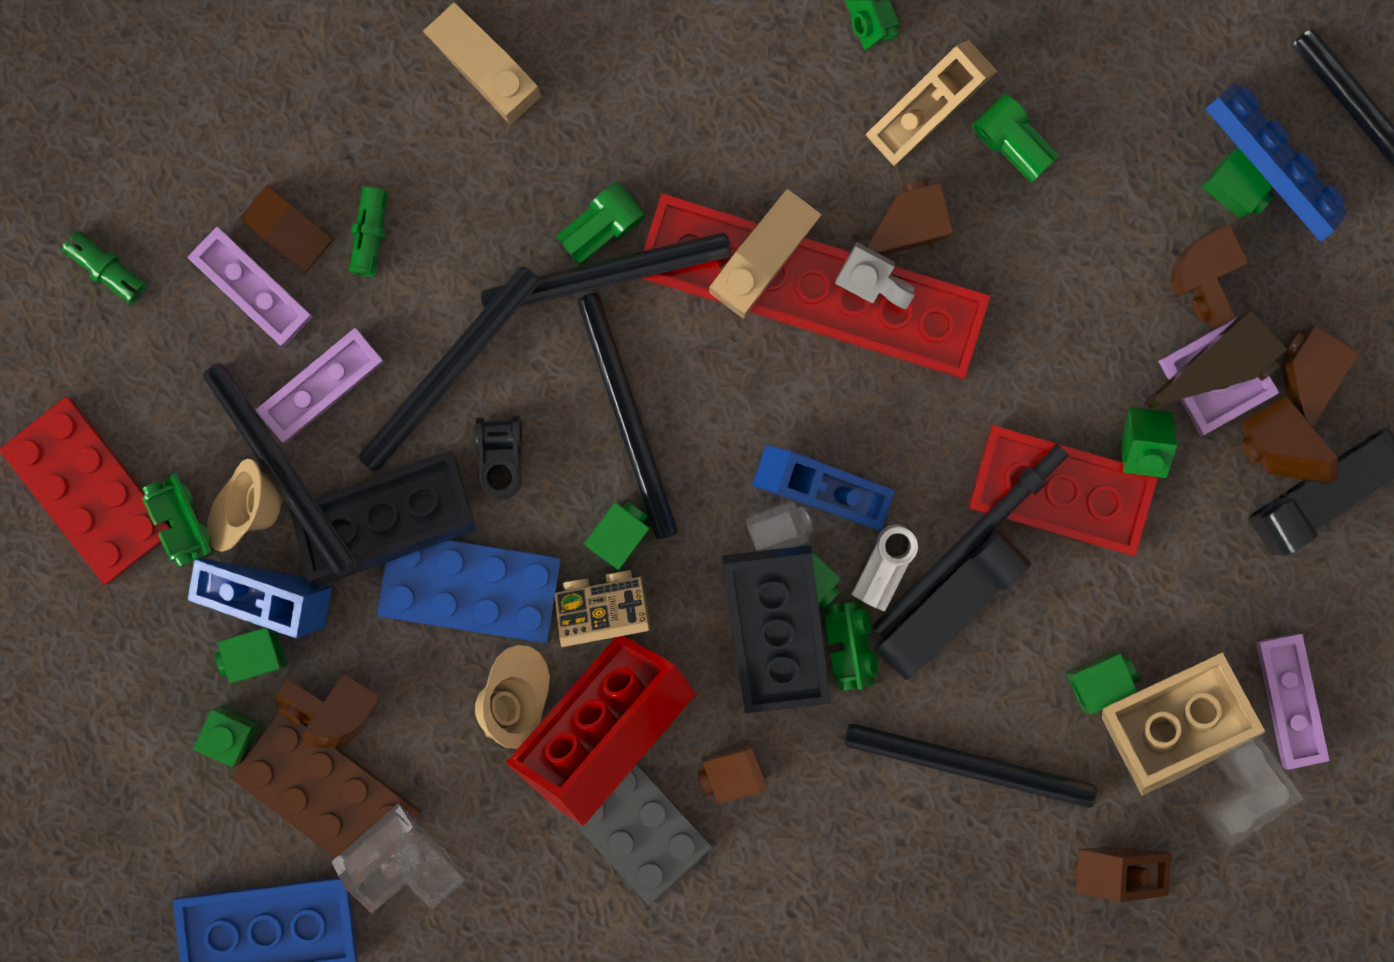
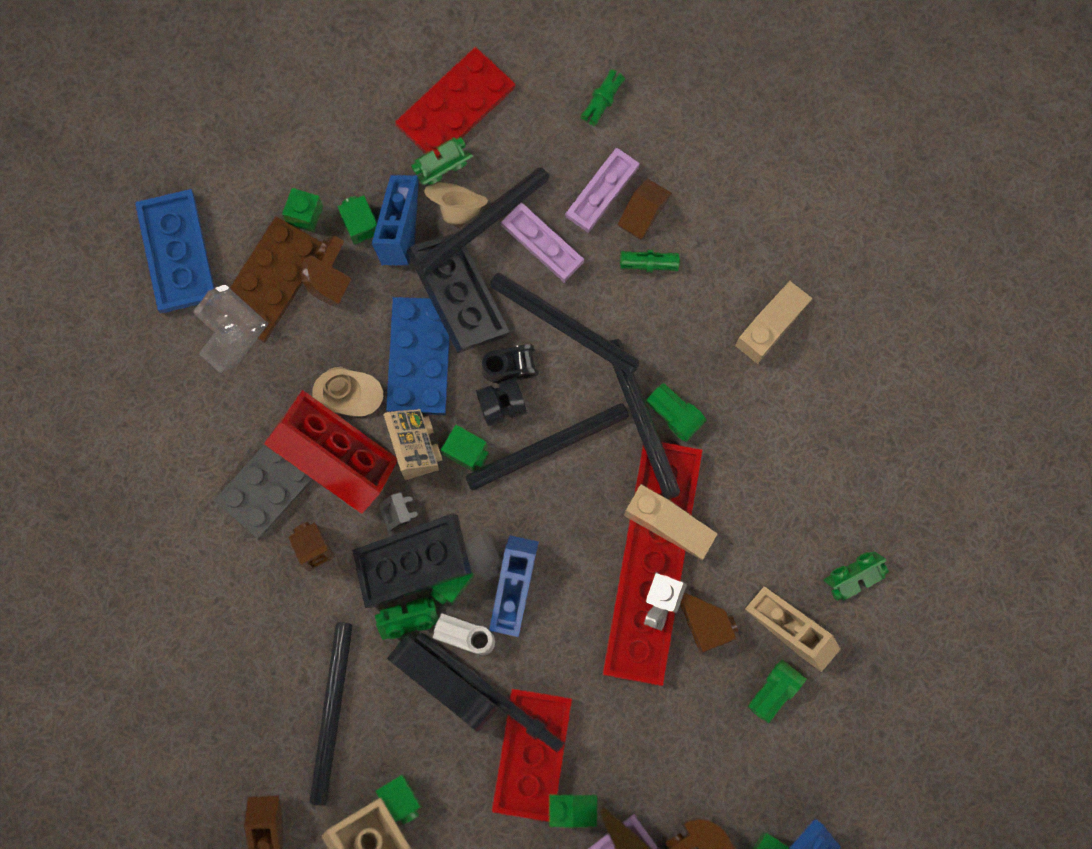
camera: 85 degrees right, 10 degrees down
(559, 489) = (491, 405): none -> black wheel
(697, 645) = (395, 511): none -> dark grey tile

